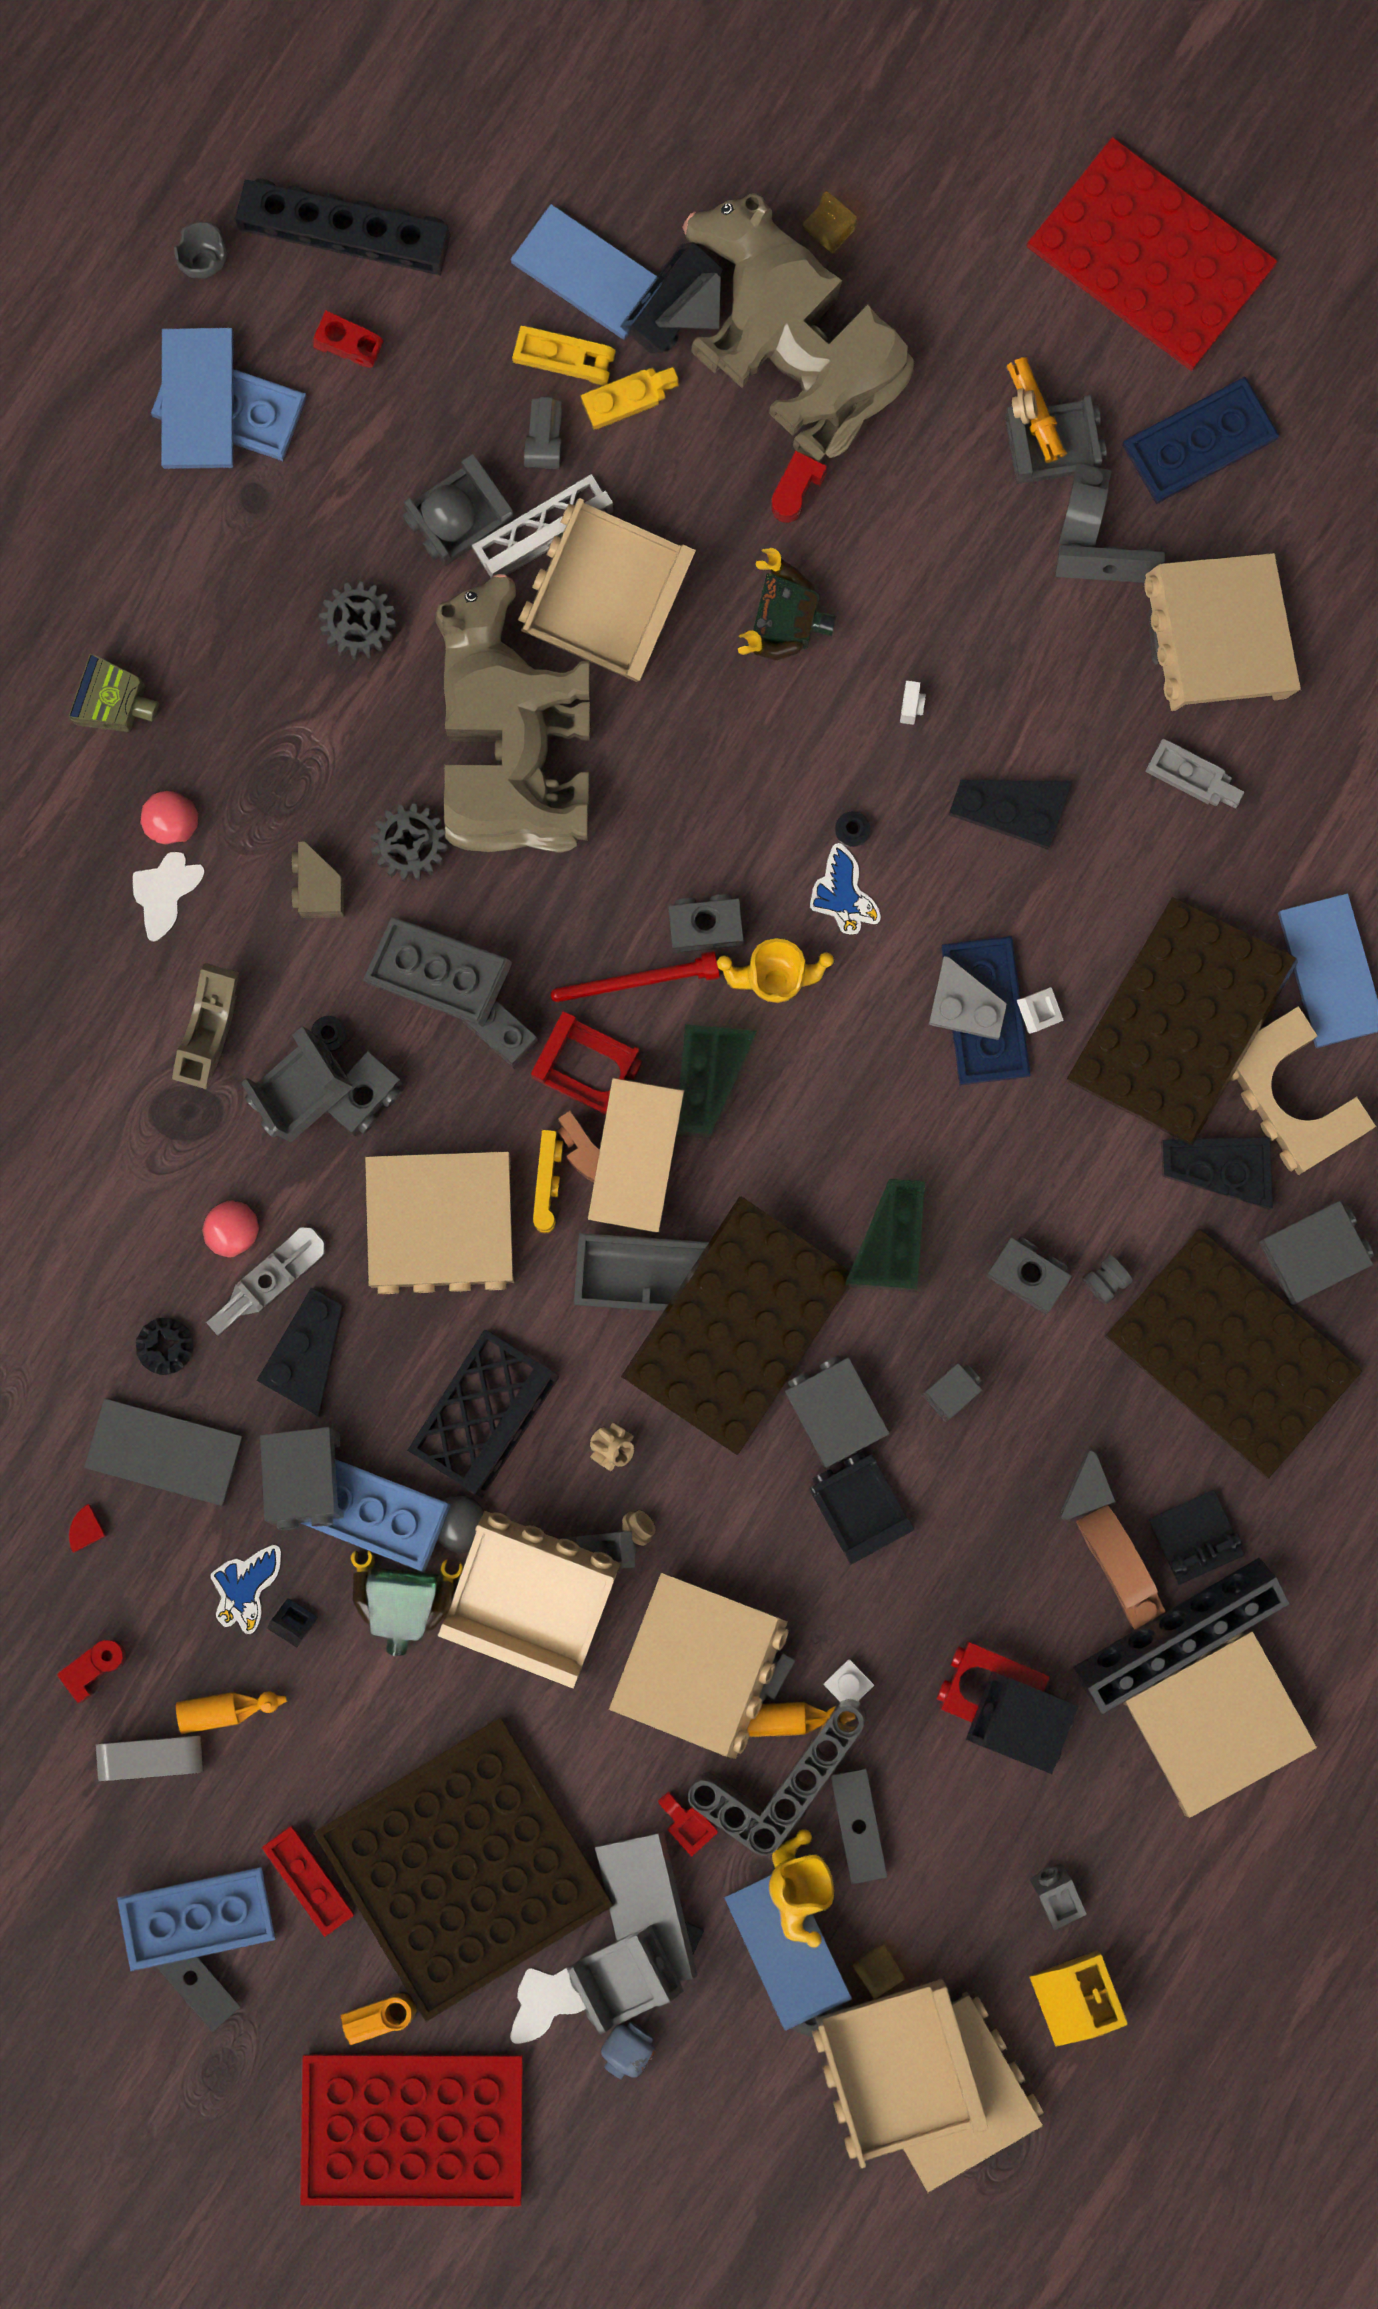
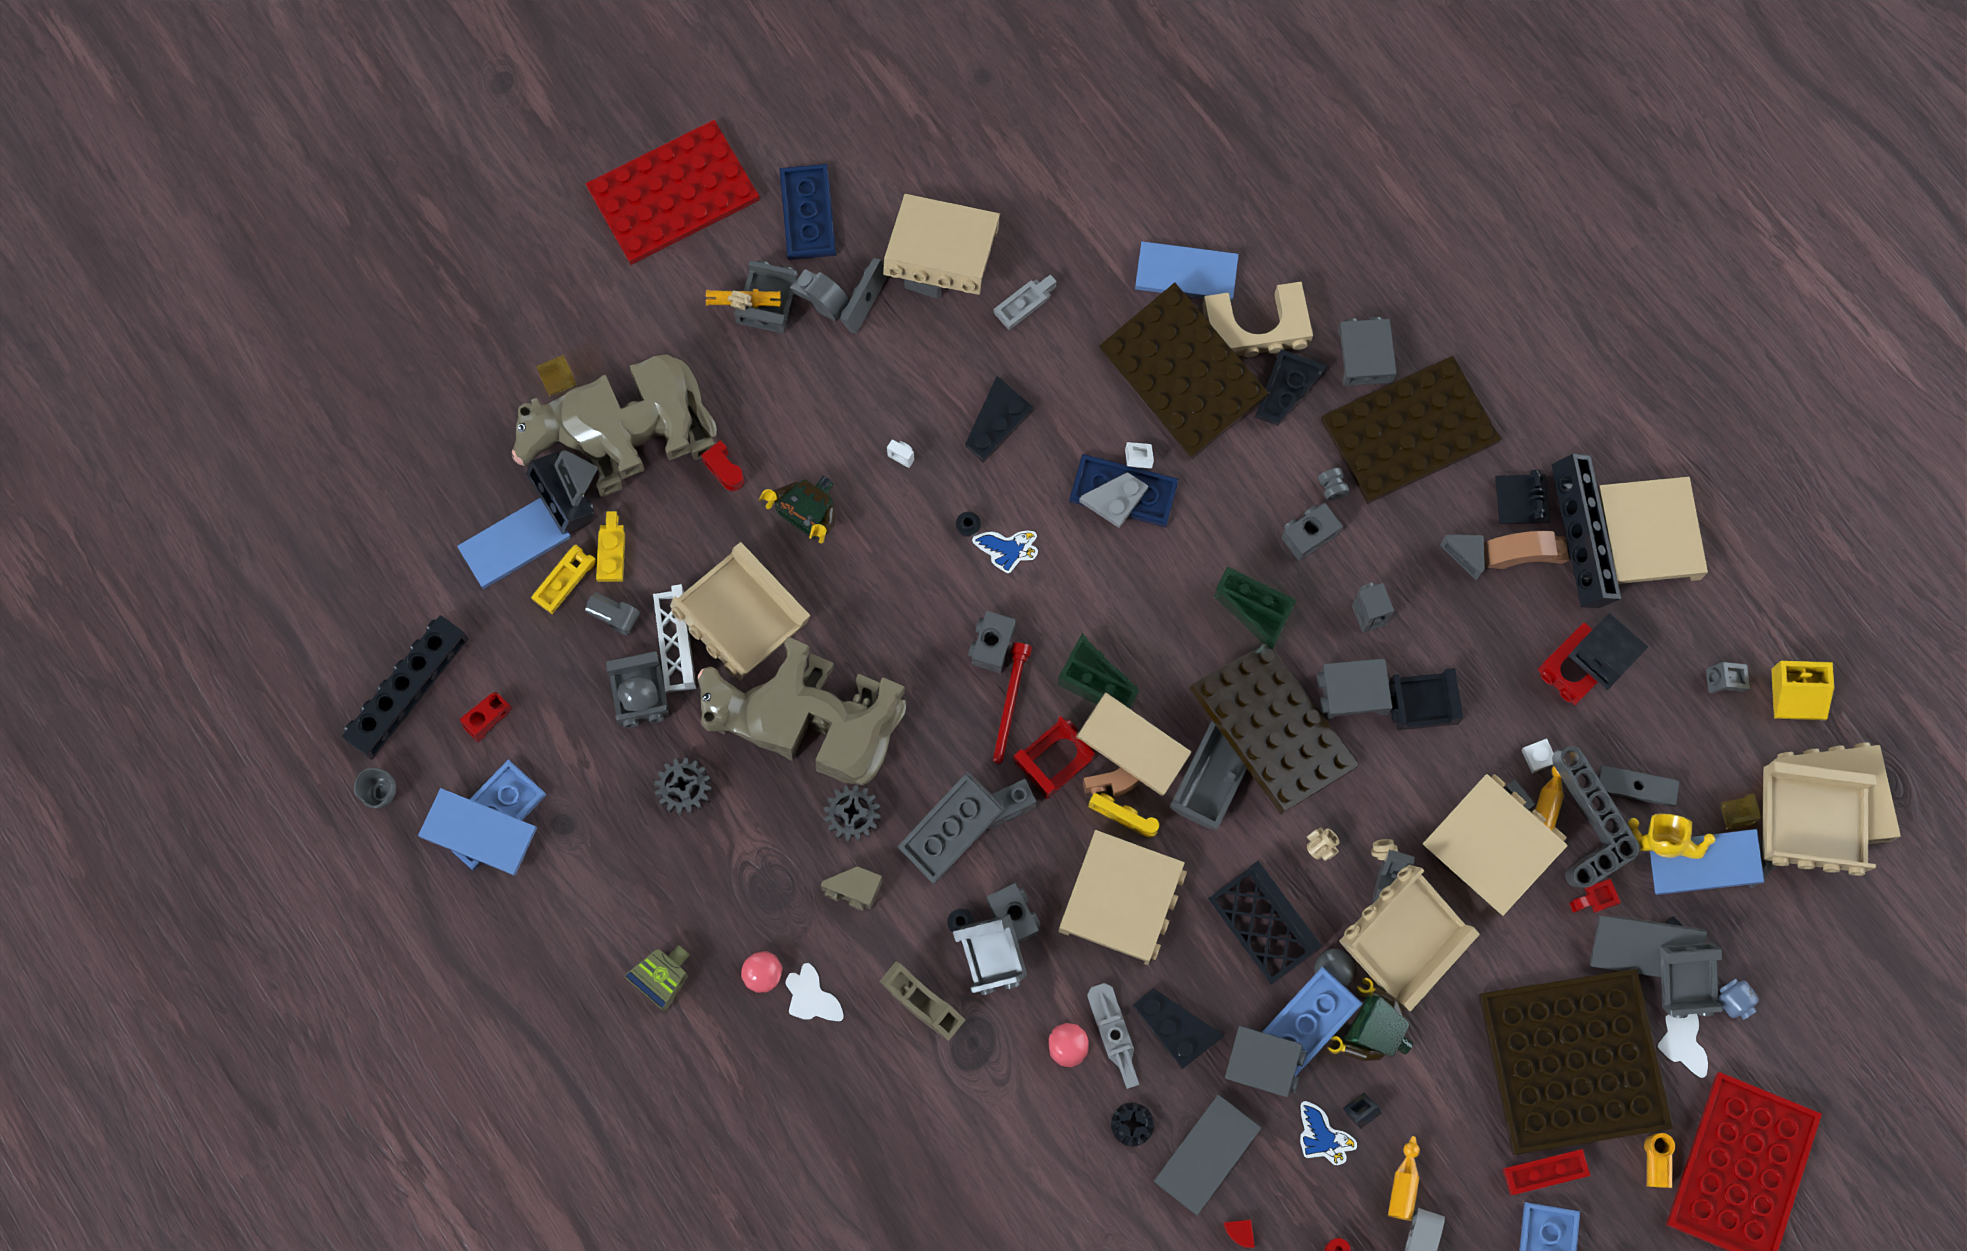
camera: 70 degrees left, 10 degrees down
(775, 970) = (1044, 608): yellow piece -> none

